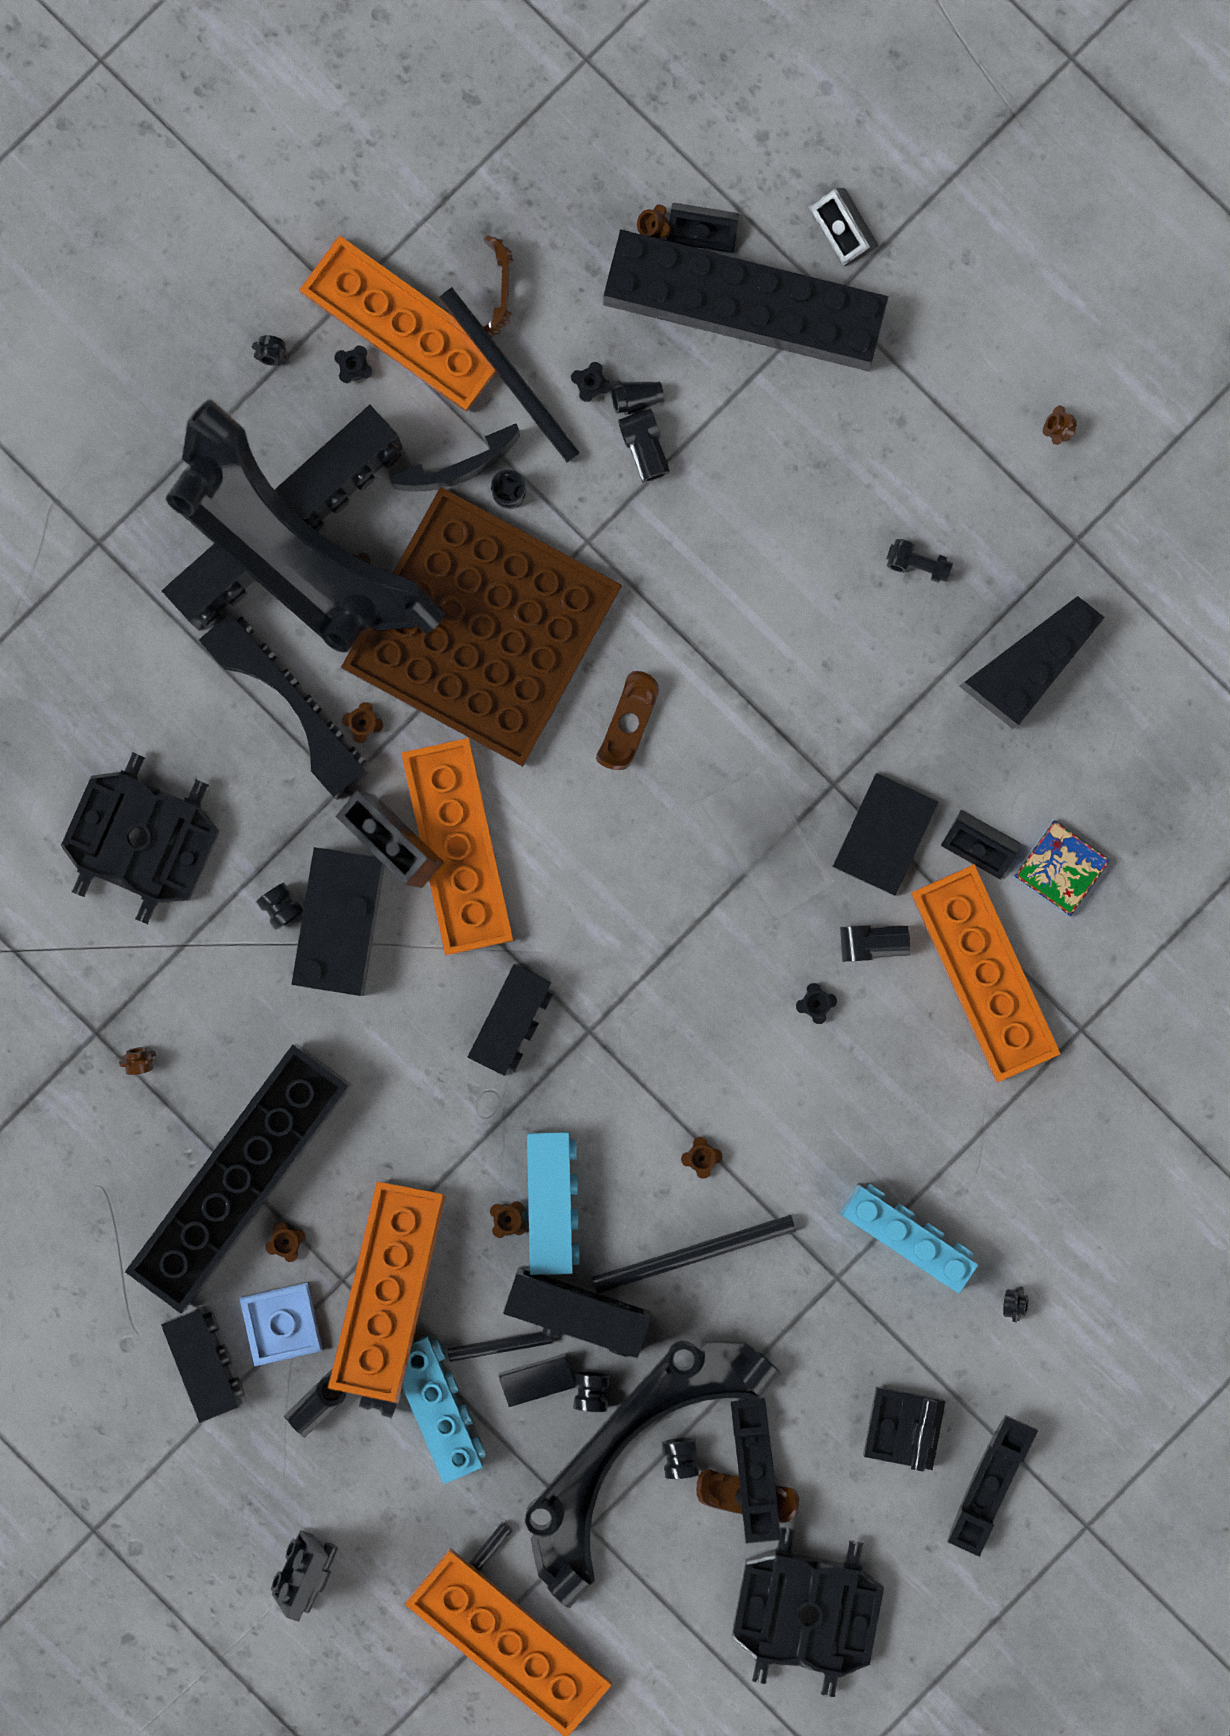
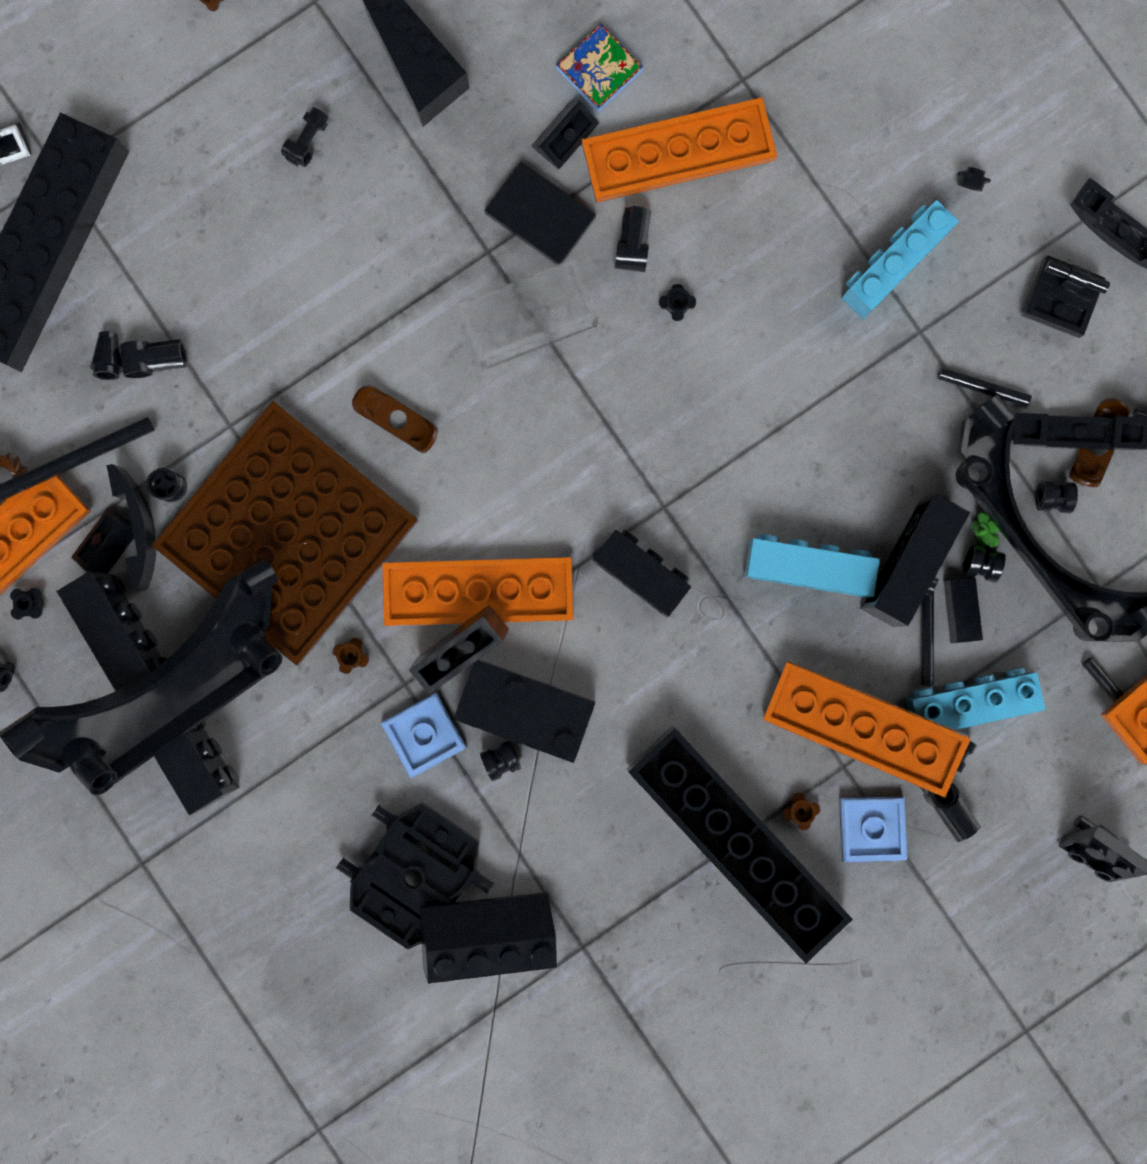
camera: 75 degrees left, 0 degrees up
(90, 928) = (487, 937): none -> black slope
(137, 1061) = (615, 915): reddish brown plate -> none
(203, 1363) = (898, 906): black brick -> none
(237, 652) = (264, 756): black arch -> none
(291, 818) = (423, 735): none -> light blue tile
(433, 433) = (104, 543): none -> black slope
(515, 1226) = (825, 604): reddish brown plate -> none
(588, 391) = (95, 396): black plate -> none
(622, 1389) = (985, 530): none -> bright green plant
(694, 1254) = (877, 451): black piece -> none
(701, 1167) = (795, 419): reddish brown plate -> none
(788, 1359) = (984, 387): none -> black bar

